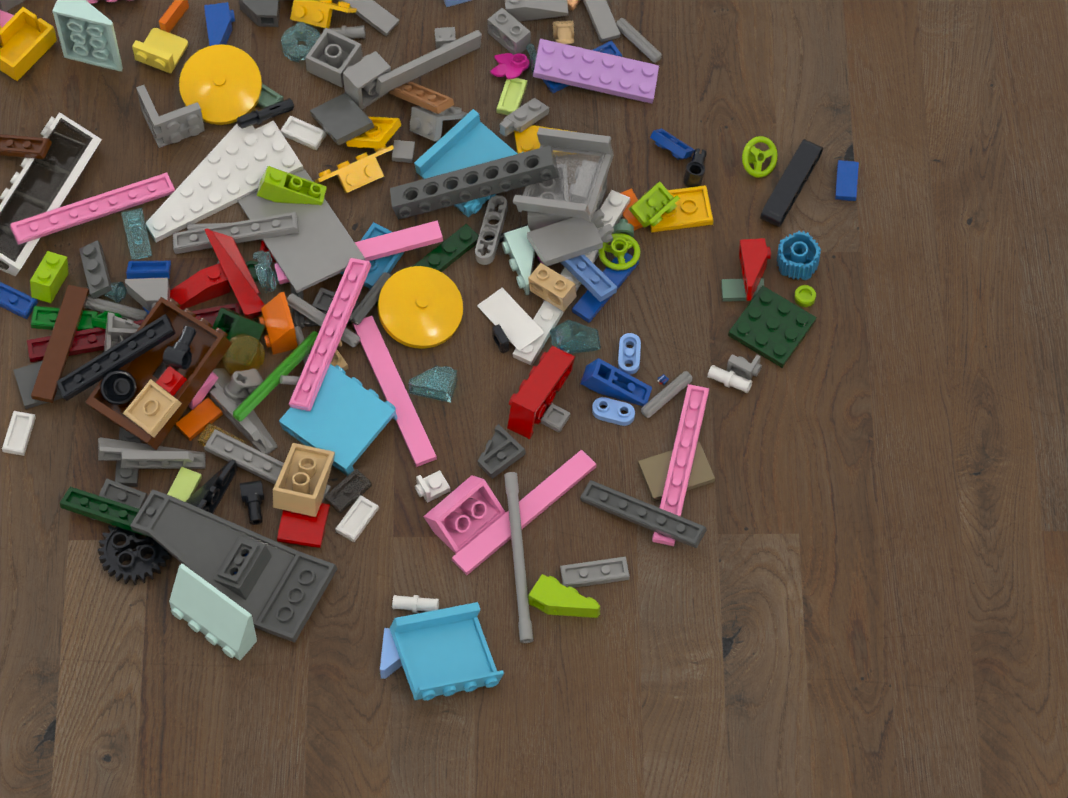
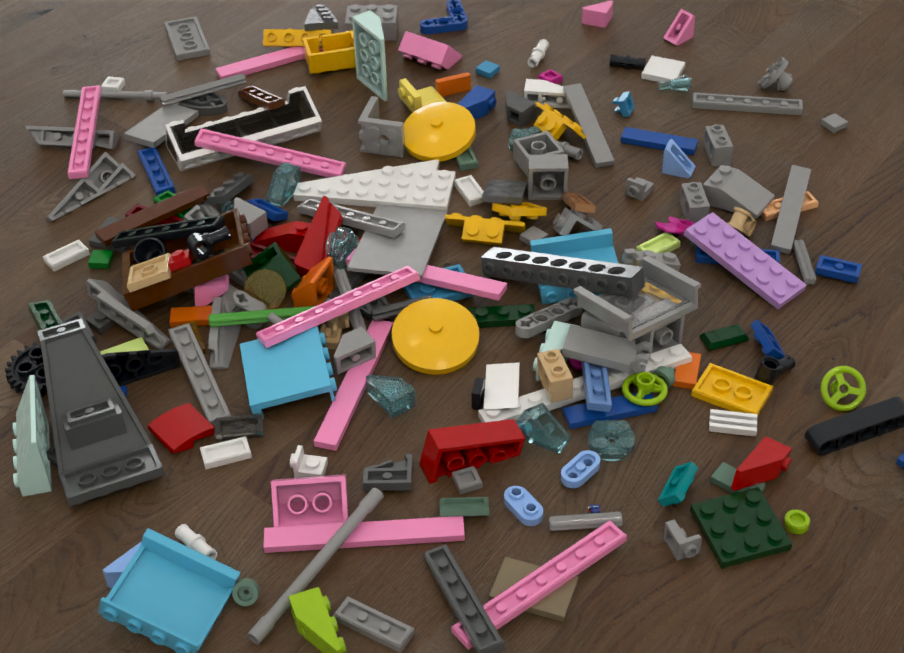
camera: 40 degrees right, 20 degrees down
(49, 277) = (192, 173): lime brick -> none
(55, 416) = (101, 259): none -> green tile
(252, 495) = (164, 385): black pin -> none
(265, 113) = (452, 162): black axle -> none
(289, 188) = (417, 209): lime slope -> none
(303, 479) = (207, 391): tan slope -> none
(373, 363) = (353, 350): none -> light grey slope
(428, 62) = (607, 188): light grey tile -> none
(490, 612) = (246, 592): none -> sand green tile
(575, 441) = (464, 506): none -> sand green tile
(614, 383) = (544, 482): blue slope -> none
(628, 301) = (604, 430): none -> clear light blue plate
(634, 159) = (724, 337): none -> dark green tile
(653, 205) = (706, 370): lime bracket -> none
(671, 32) = (838, 269): none -> blue plate
(704, 231) = (730, 421): none -> white tile
(706, 320) = (678, 484): none -> teal plate
(729, 379) = (657, 543): white pin -> none
(798, 256) = (815, 482): dark azure brick -> none

